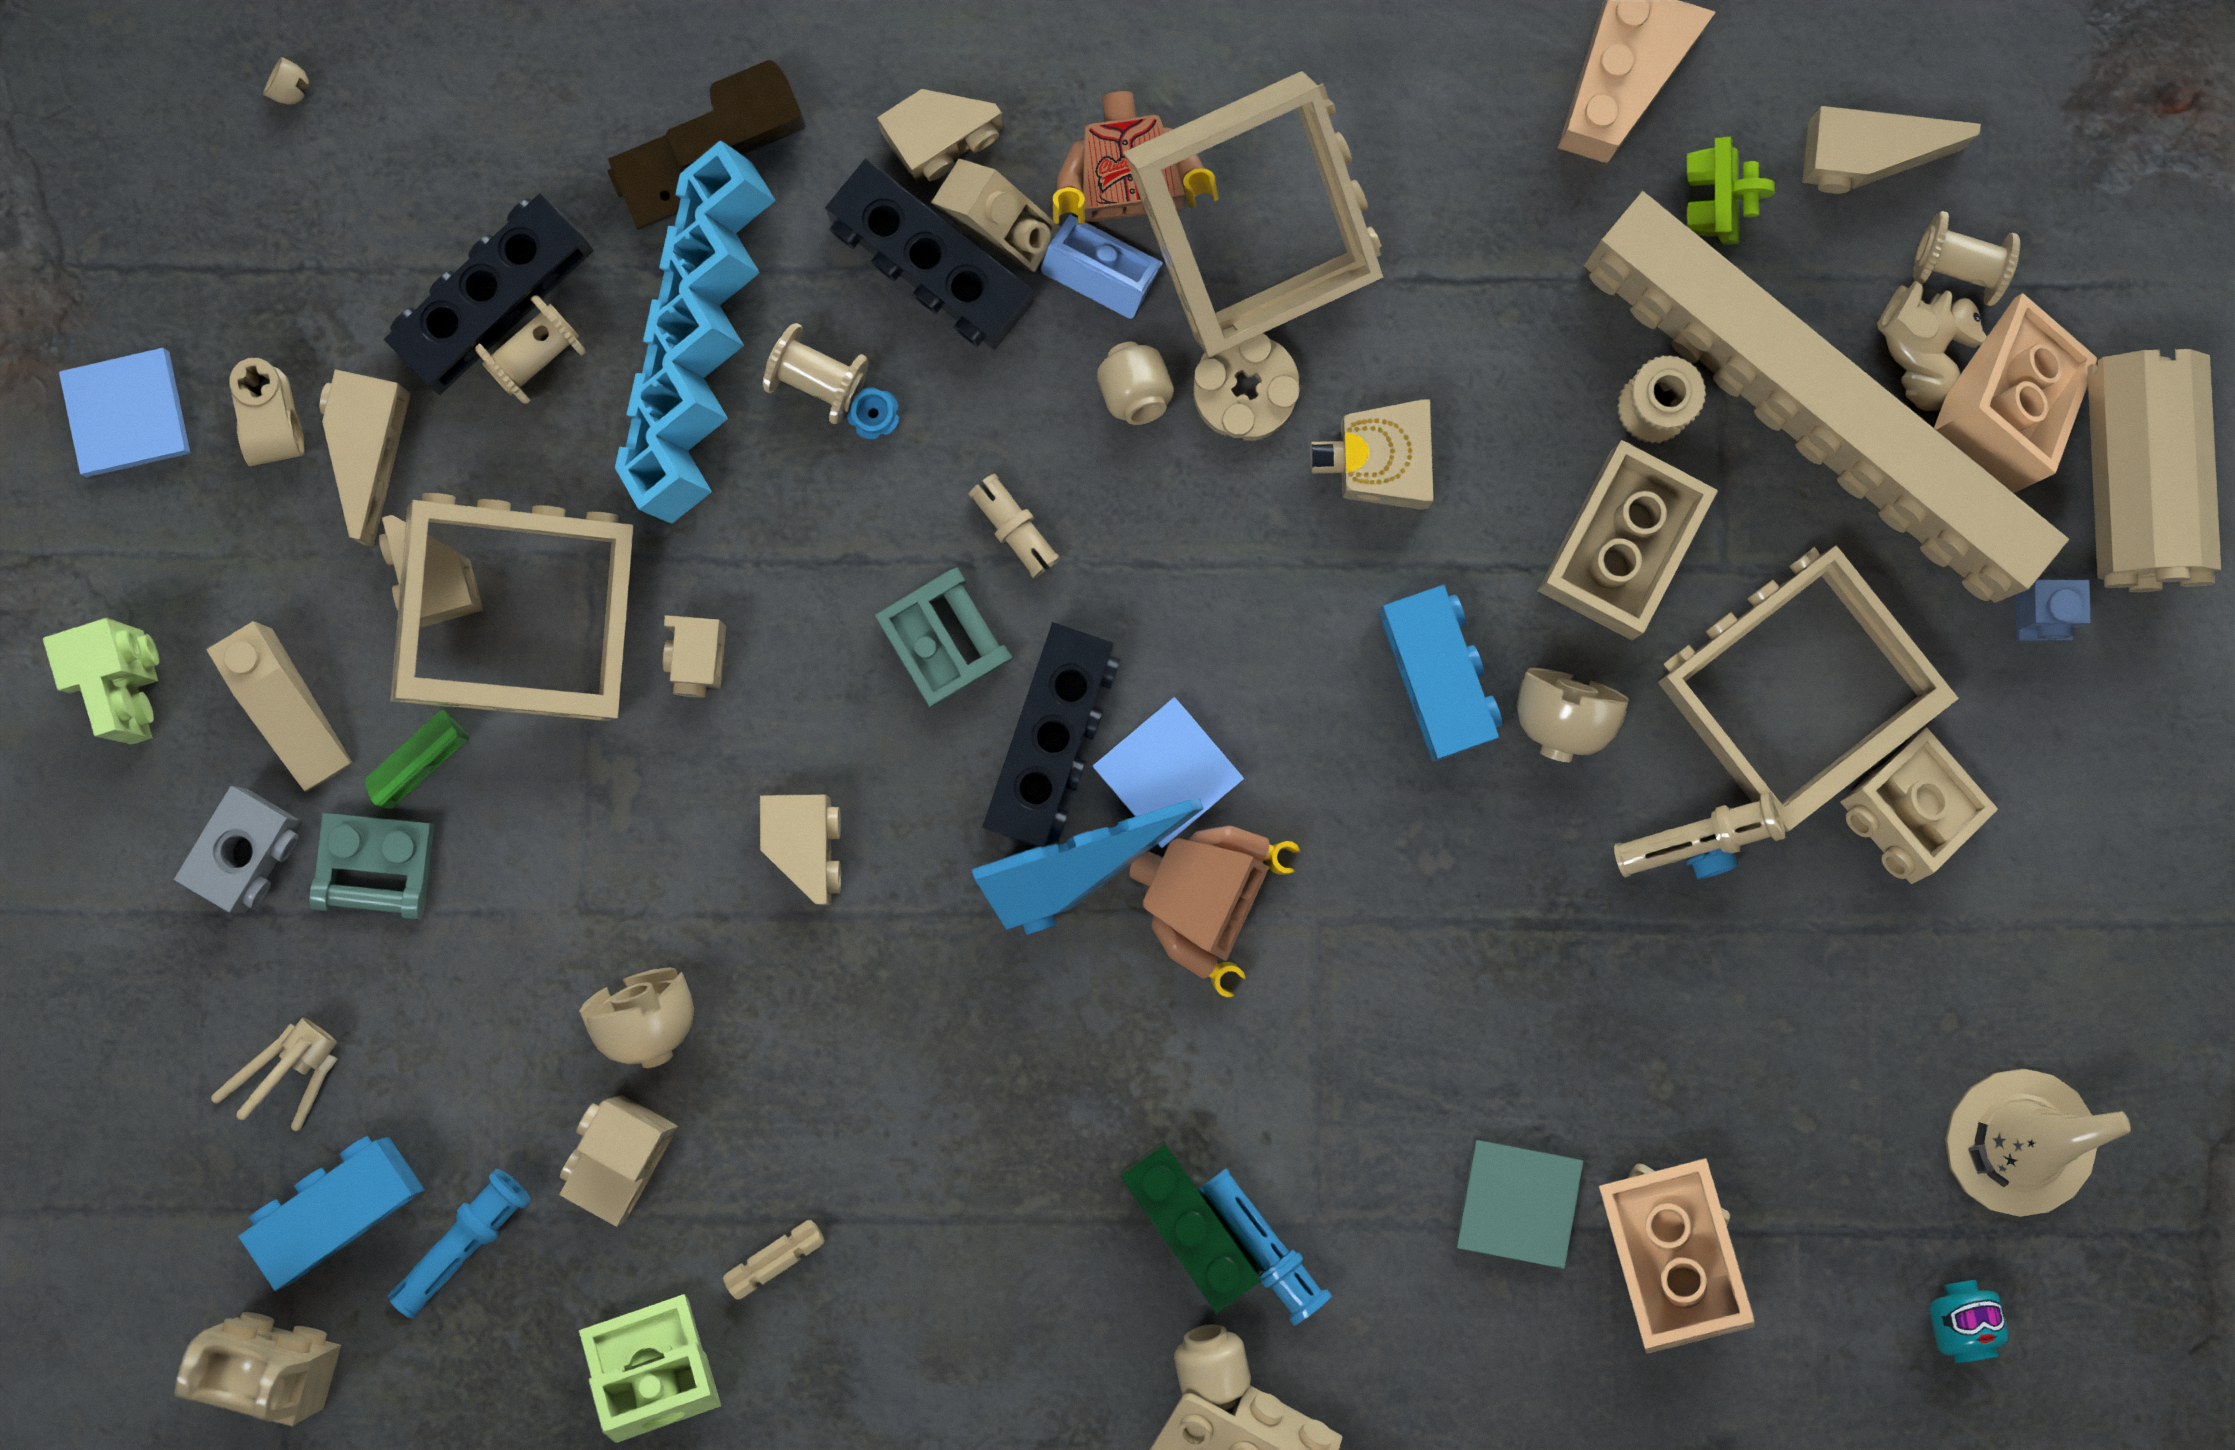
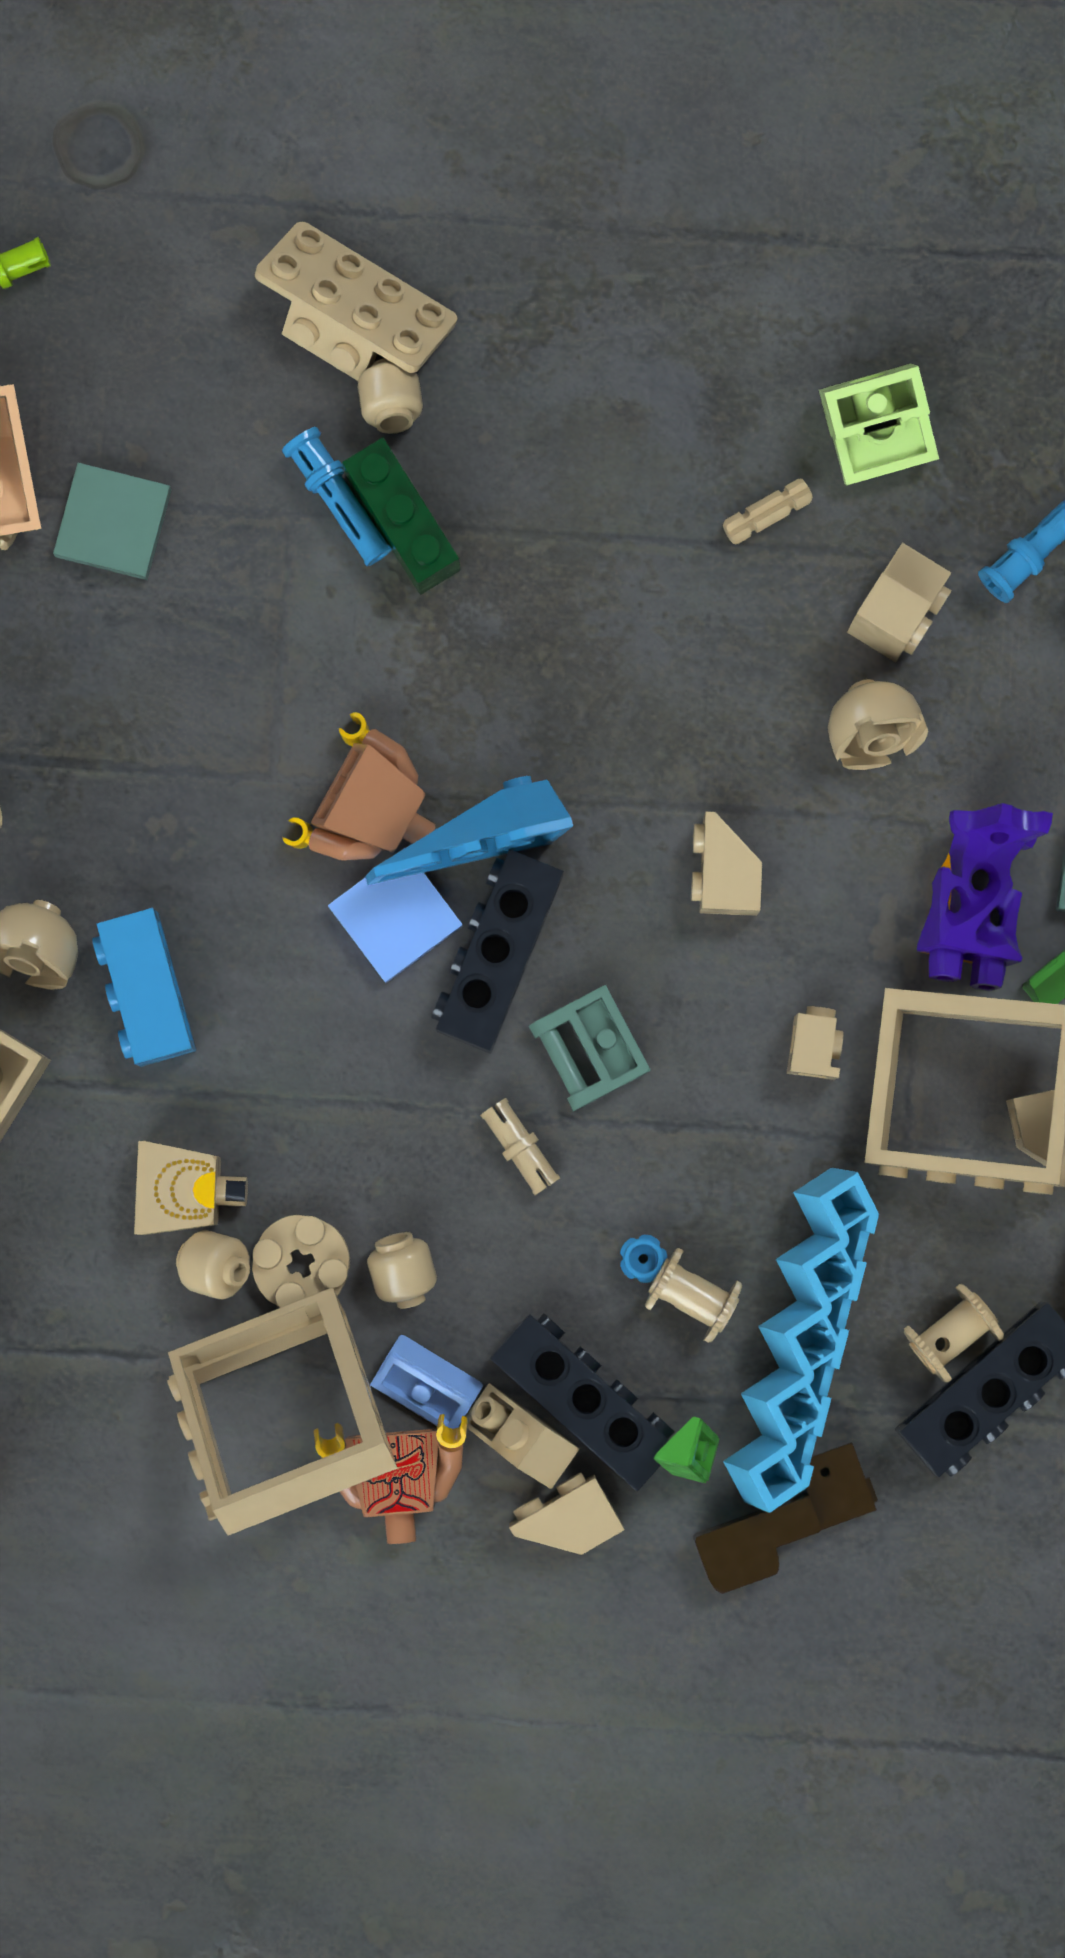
camera: 175 degrees left, 0 degrees up
(535, 806) = (959, 915): none -> dark purple hips
(808, 201) = (690, 1451): none -> bright green slope
(1341, 375) = (213, 1264): none -> tan head

